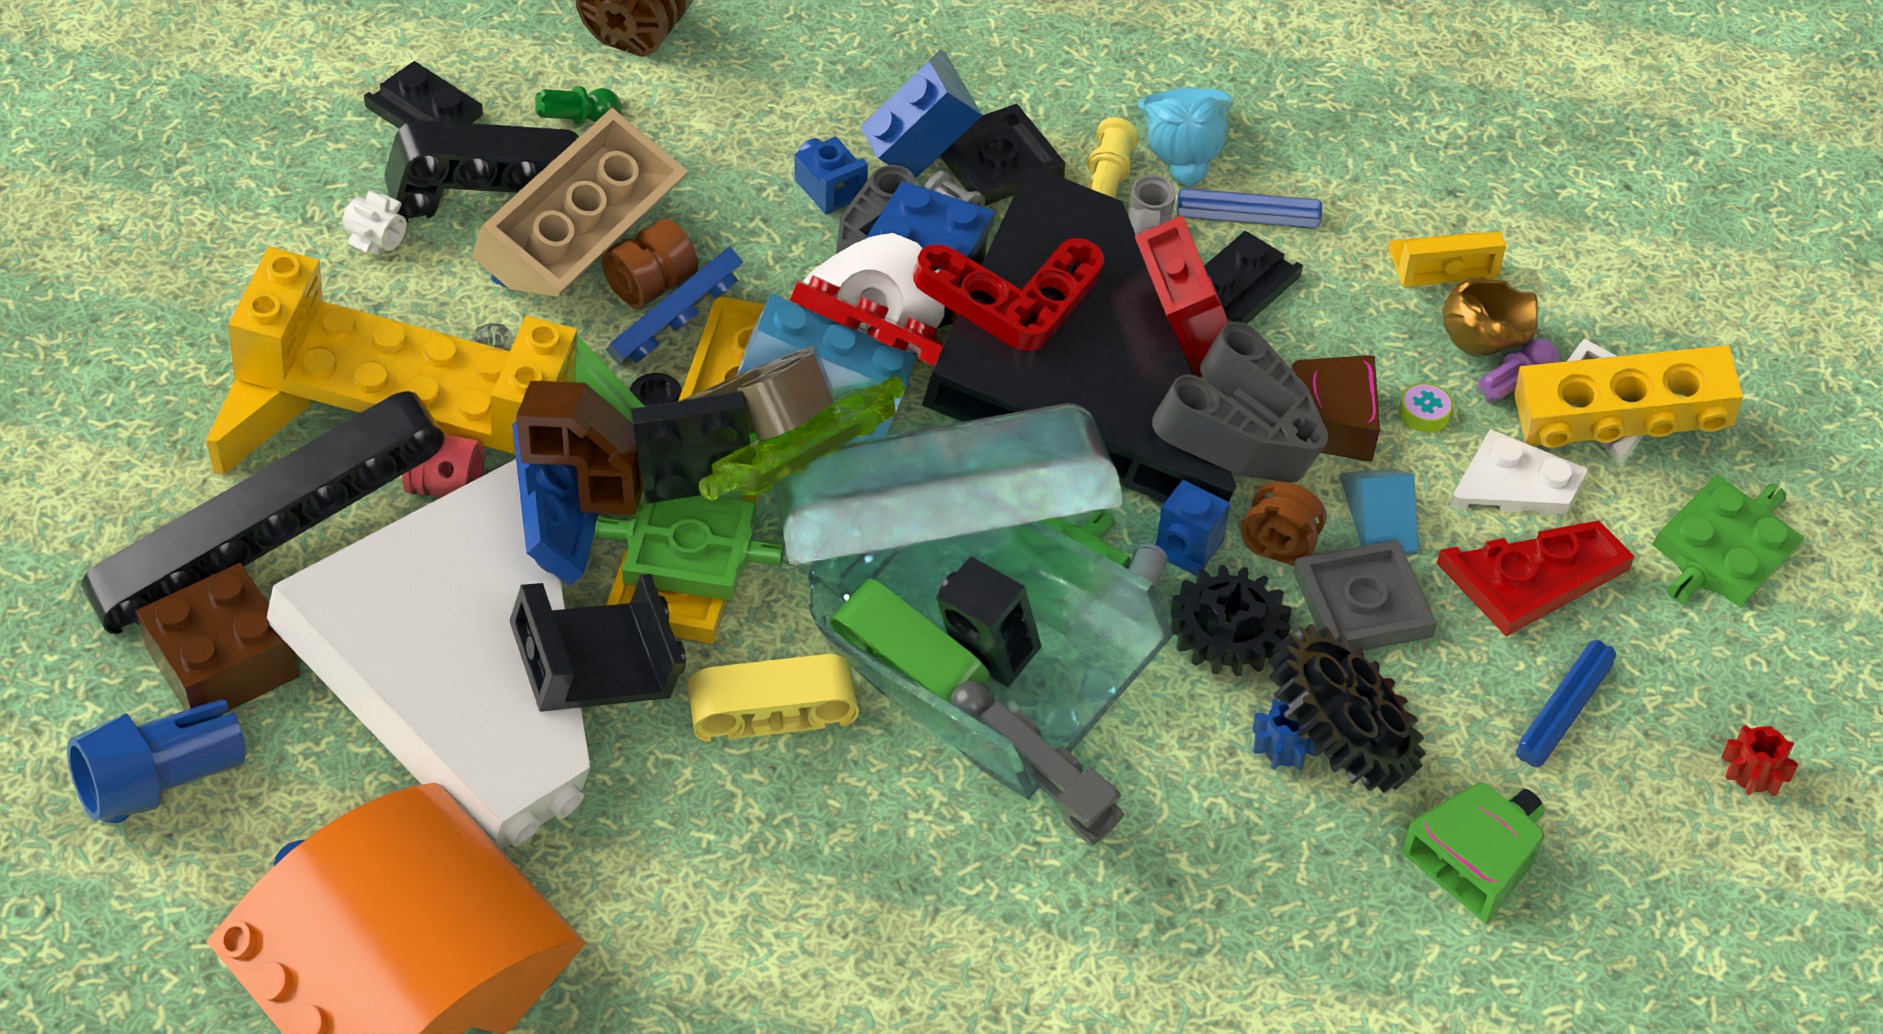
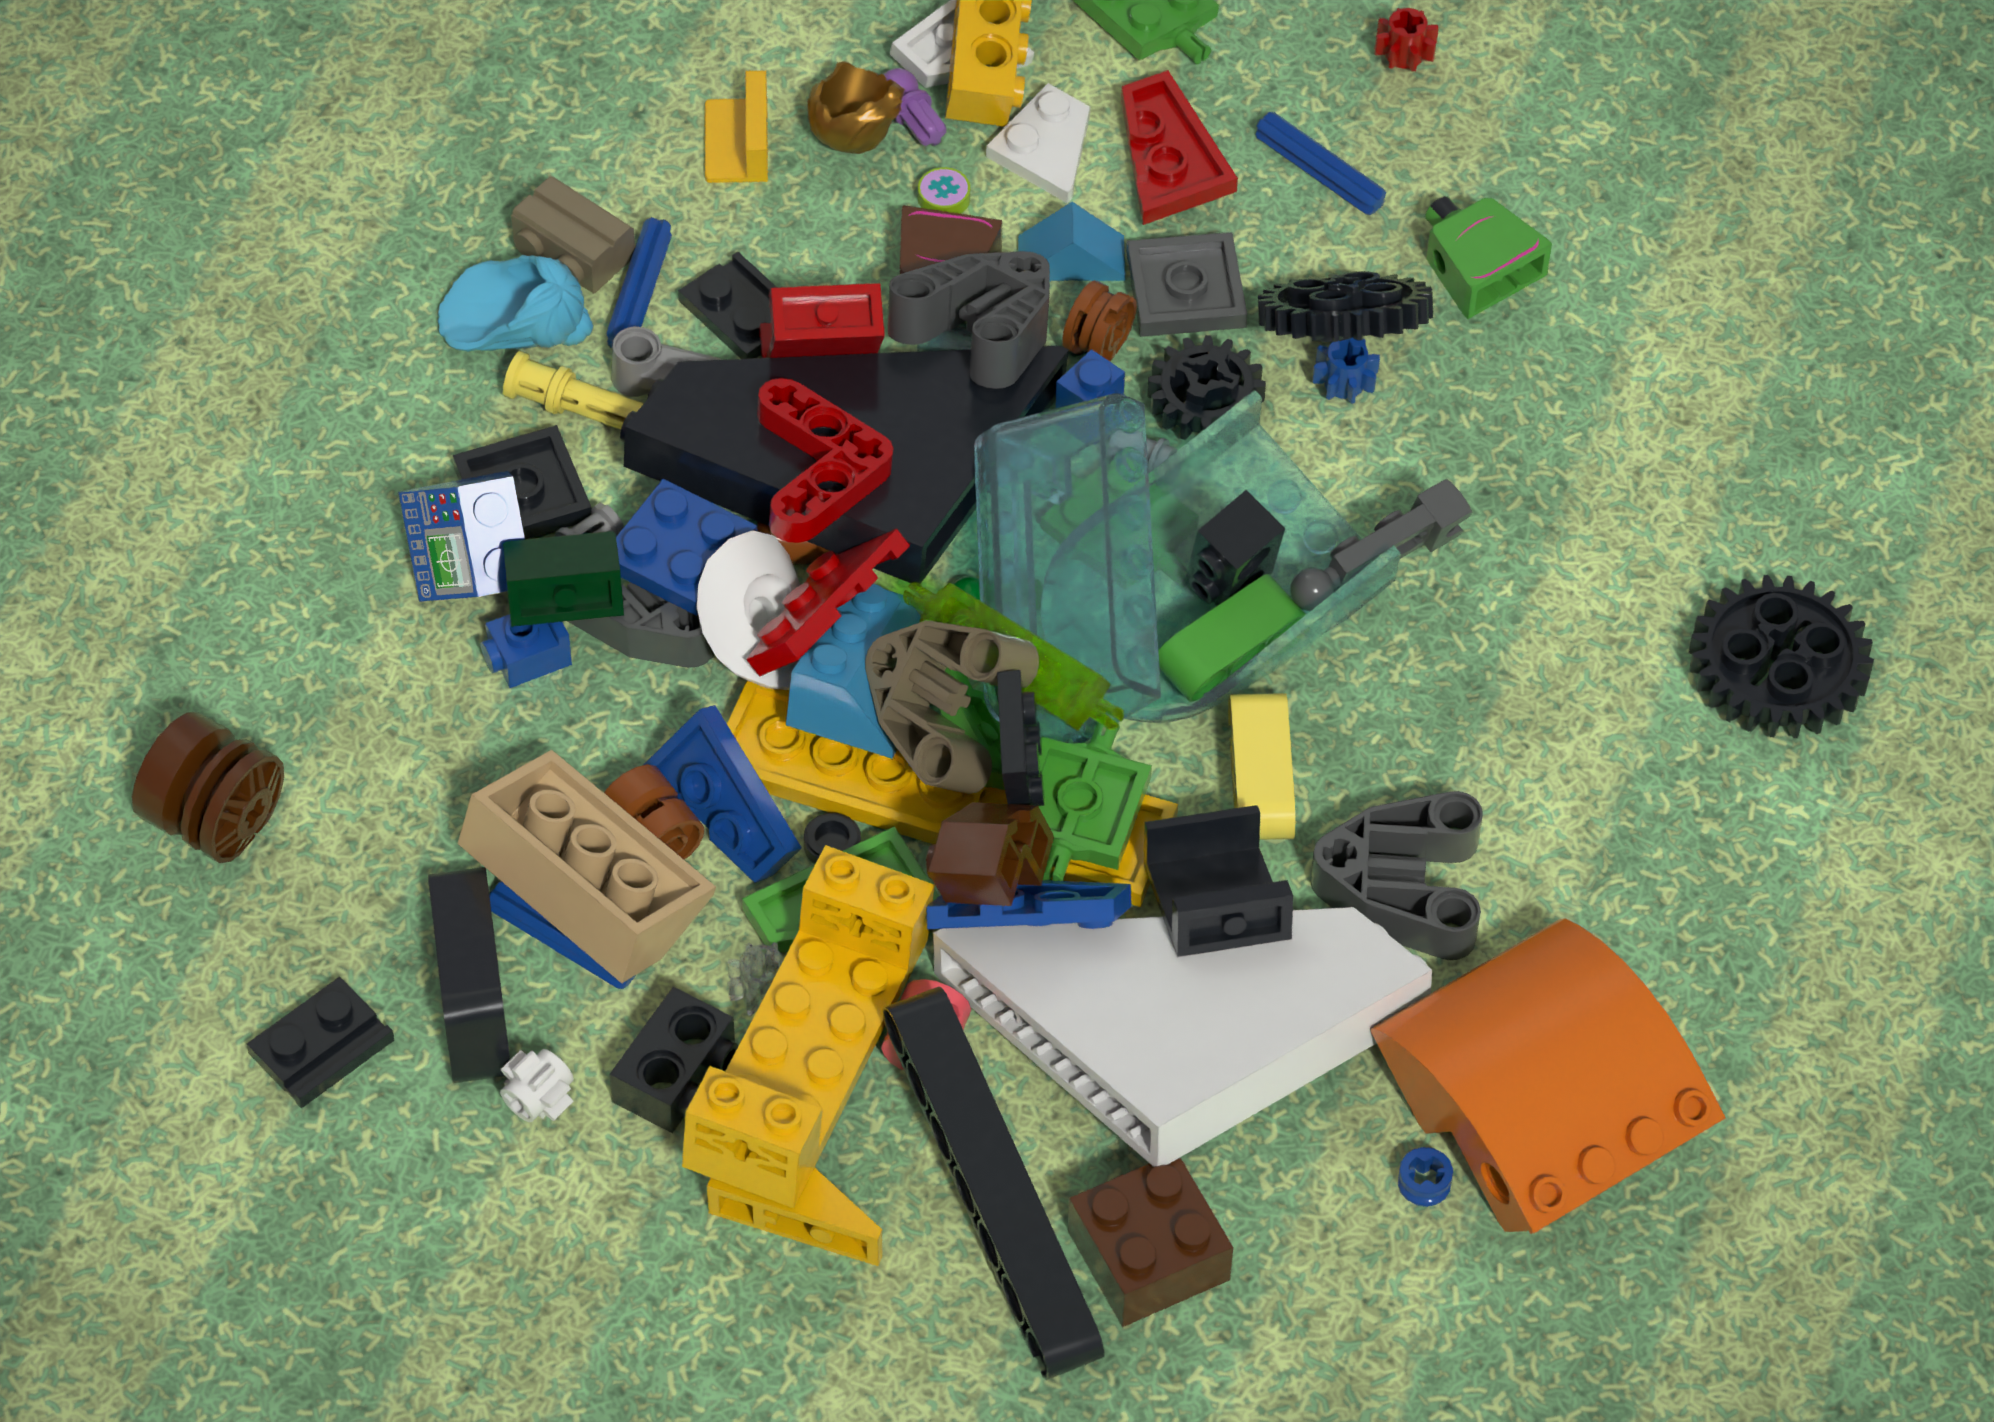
camera: 80 degrees left, 5 degrees up
(127, 766) = (1307, 1301): blue piece -> none
(407, 295) = (662, 1056): none -> black brick
(576, 104) = (358, 878): green axle -> none
(653, 775) = (1381, 868): none -> dark grey connector
(867, 150) = (563, 578): none -> dark green panel
(1283, 150) = (575, 231): none -> dark tan brick

